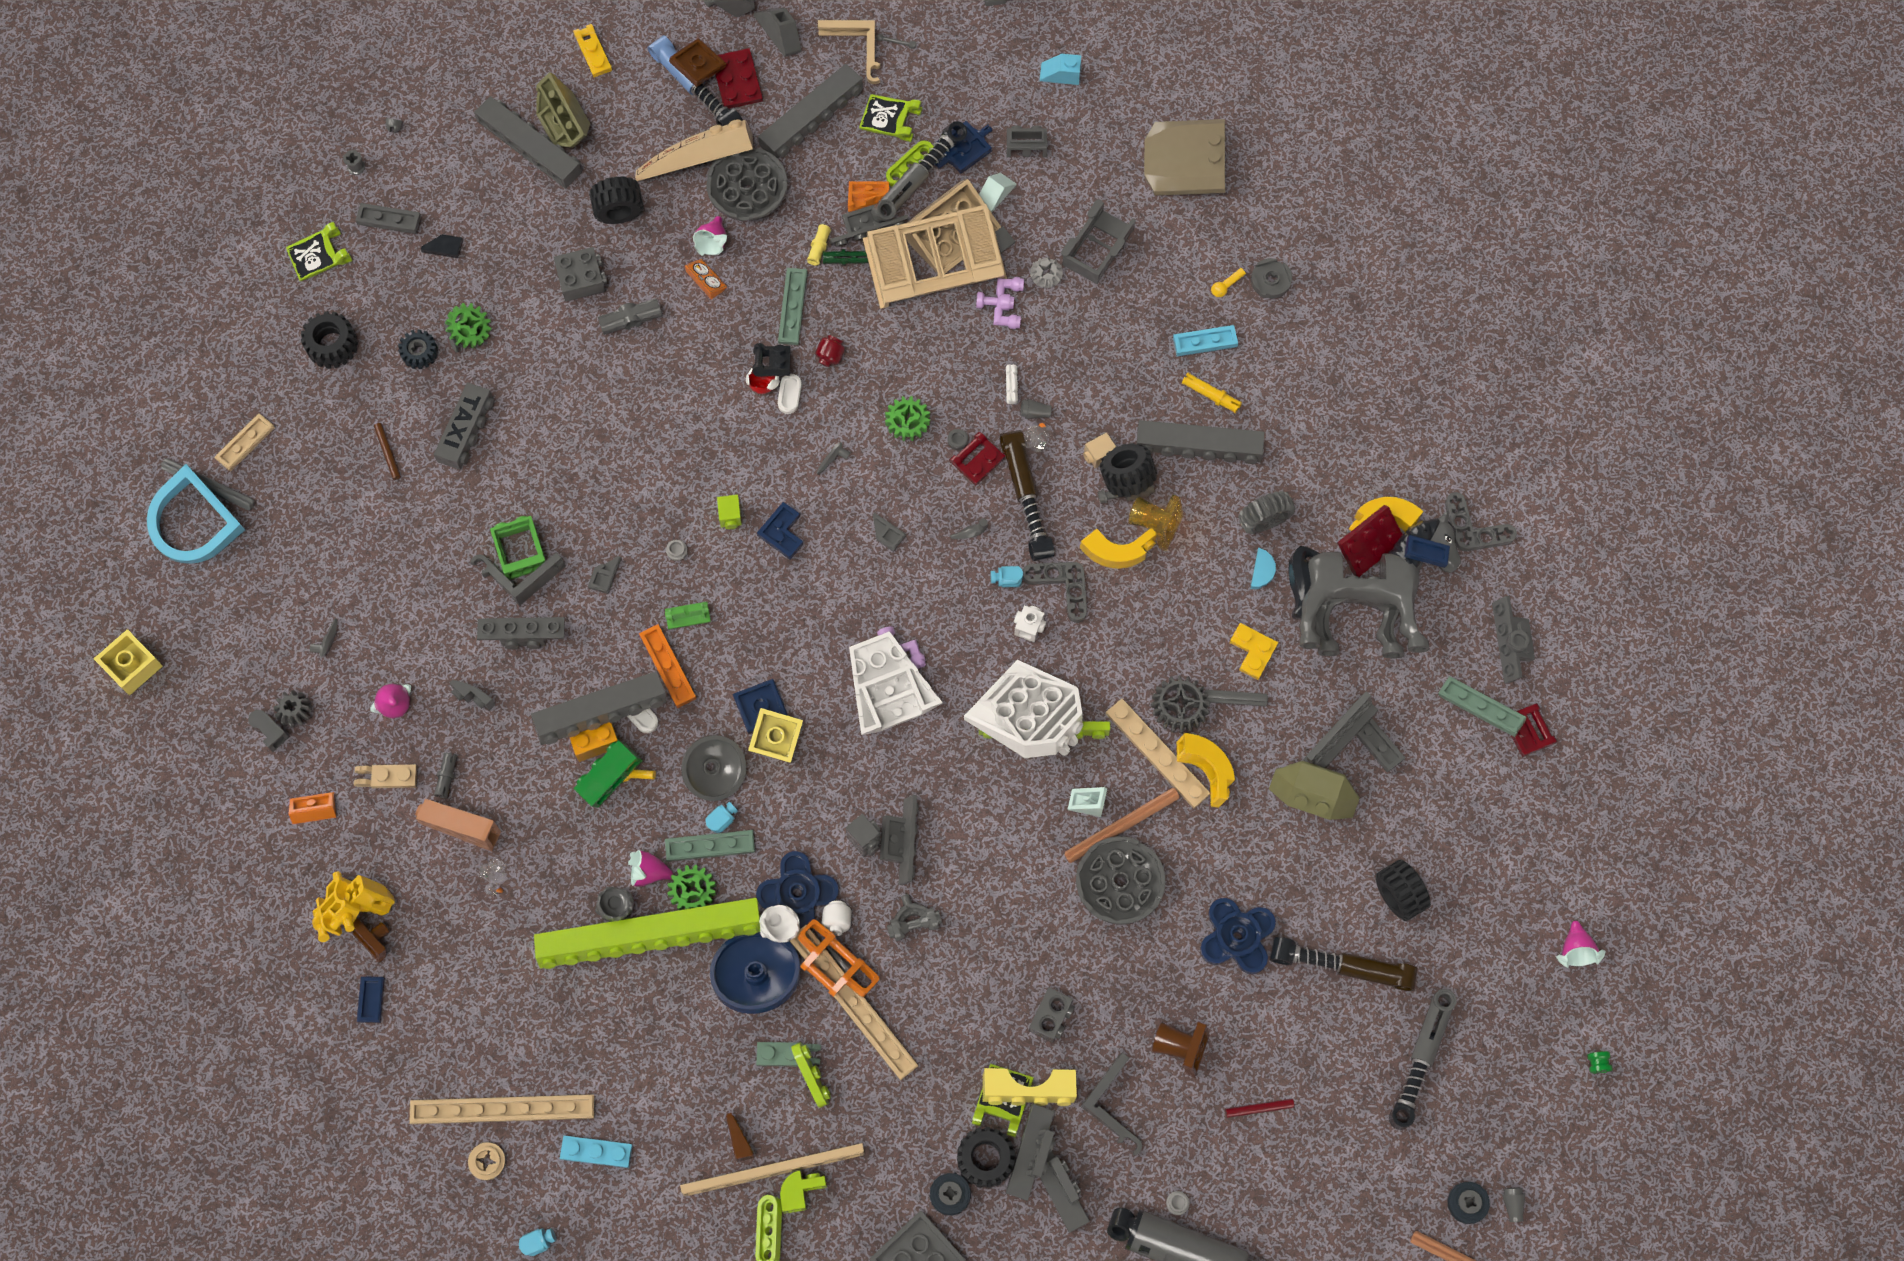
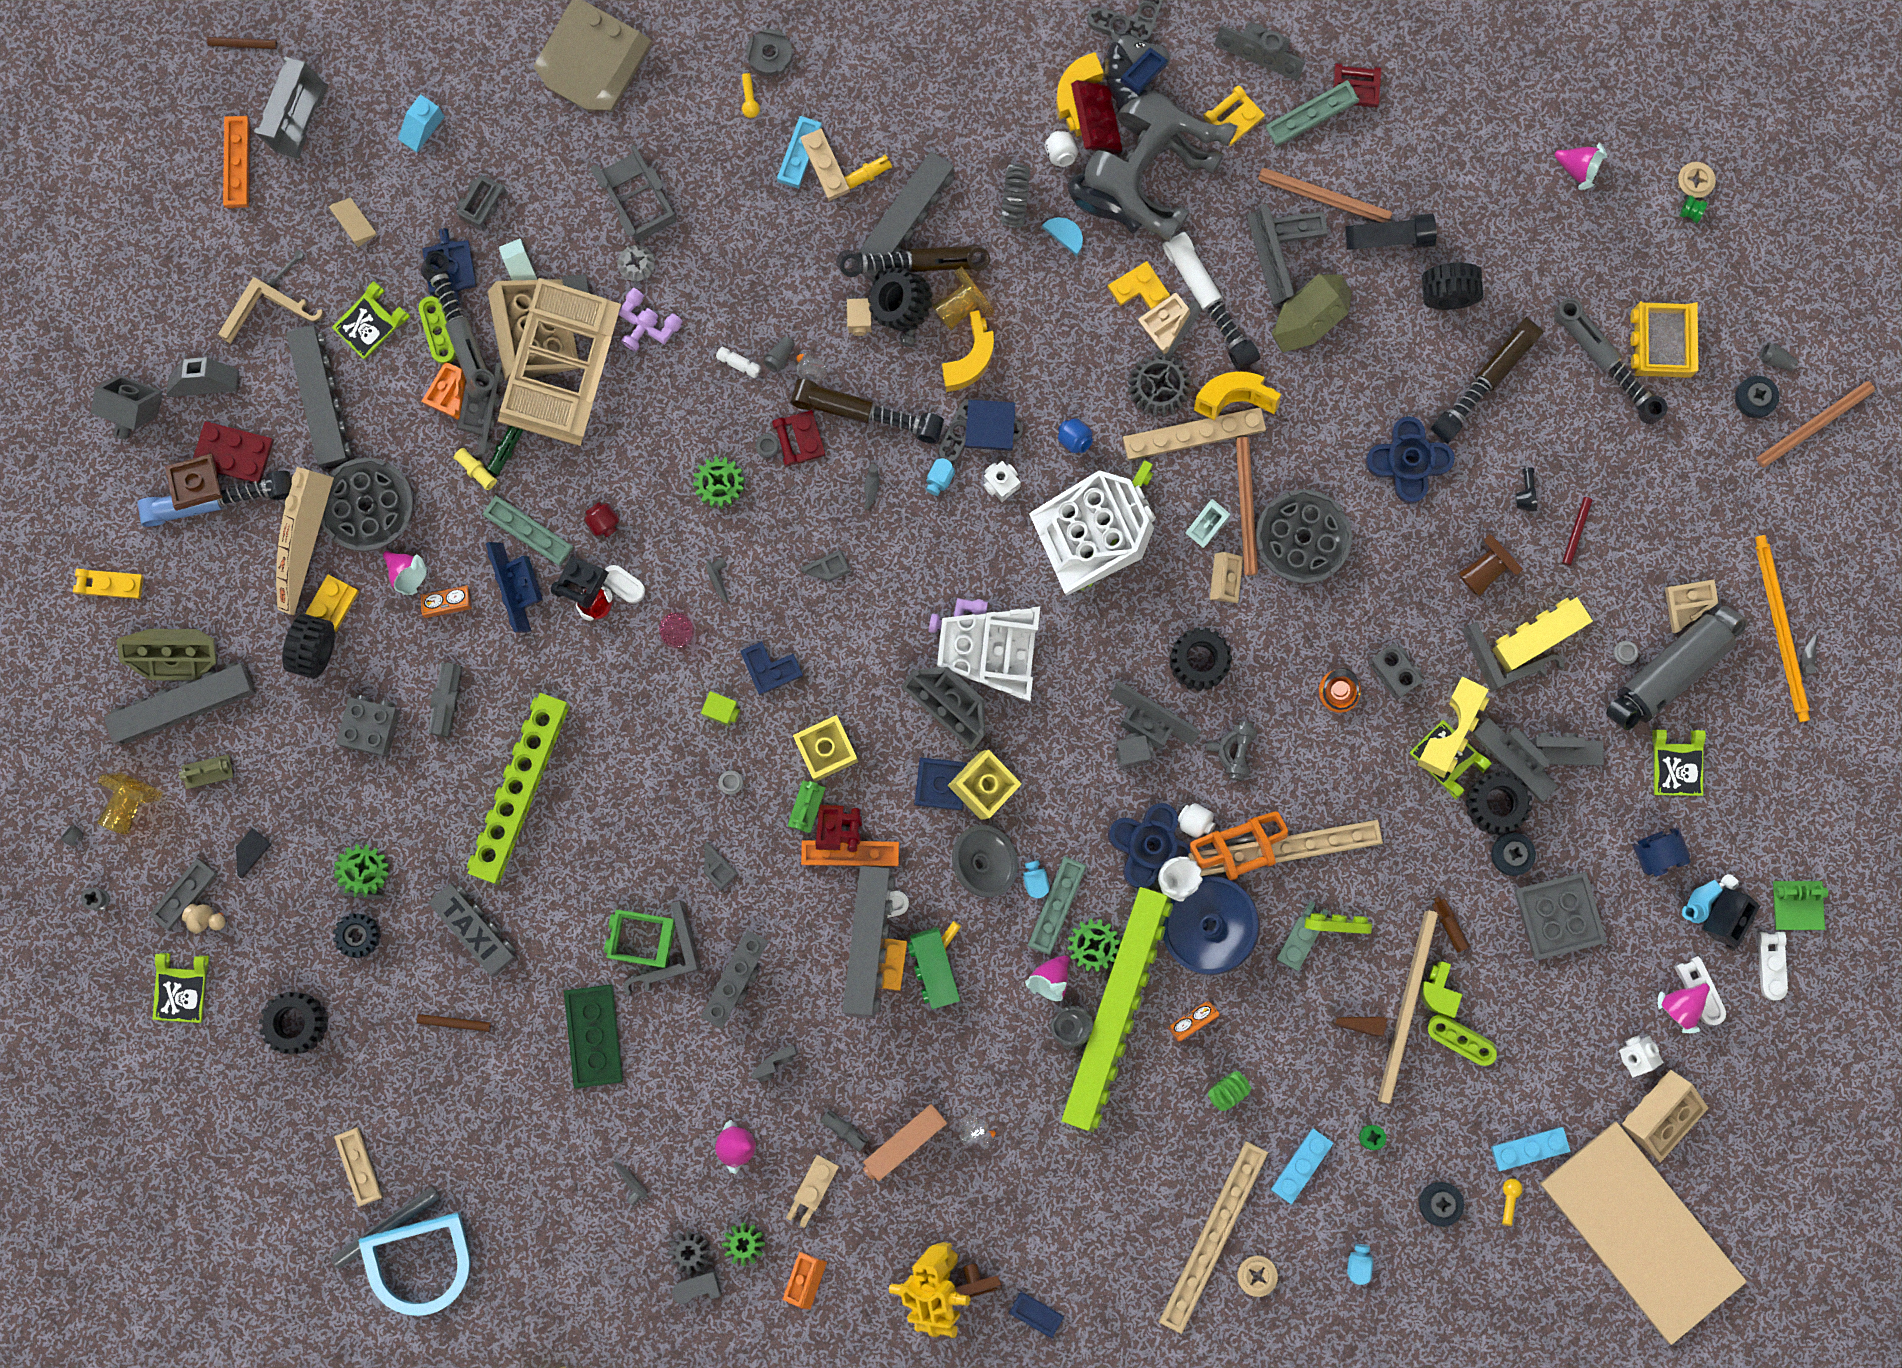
camera: 60 degrees left, 10 degrees up
(317, 753) = (751, 1247): none -> bright green gear
(377, 238) = (200, 916): none -> tan animal
(426, 554) = (593, 1036): none -> dark green tile
(443, 141) = (124, 800): none -> clear yellow plant
(487, 186) = (206, 771): none -> olive hinge
(598, 407) = (522, 801): none -> lime brick
(626, 1057) = (1229, 1091): none -> bright green gear
(651, 1199) = (1367, 1138): none -> green wheel
(661, 202) = (332, 601): none -> yellow plate
(670, 1001) = (1193, 1021): none -> slope
(681, 638) = (830, 824): none -> dark red plate
(739, 602) = (825, 748): none -> light yellow brick
(744, 318) = (516, 584): none -> dark blue bracket
(774, 449) = (676, 630): none -> clear pink wheel
(825, 673) = (949, 702): none -> dark grey wedge
(862, 1171) = (1450, 924): none -> reddish brown piece
(959, 65) = (353, 221): none -> tan slope
(967, 869) = (1214, 644): none -> black tyre
(1010, 979) = (1340, 690): none -> orange piece
(1053, 840) = (1226, 577): none -> tan slope
(1070, 591) = (990, 425): none -> dark blue tile
(1100, 661) = (1075, 435): none -> blue head
(1151, 1121) = (1542, 634): none -> light yellow brick
(1168, 466) = (916, 260): none -> piece
(1205, 362) = (825, 164): none -> tan plate
(1235, 681) = (1165, 321): none -> tan wing
(1253, 1235) = (1689, 602): none -> tan wing
(1260, 1048) = (1527, 499): none -> black bar
(1276, 707) = (1182, 254): none -> piece
(1329, 529) = (1061, 148): none -> white head
(1420, 754) = (1325, 196): none -> nougat axle
(1435, 841) = (1418, 231): none -> black beam
(1442, 655) = (1245, 116): none -> yellow plate
(1469, 1095) = (1665, 339): none -> window
(1631, 1043) = (1704, 174): none -> tan gear

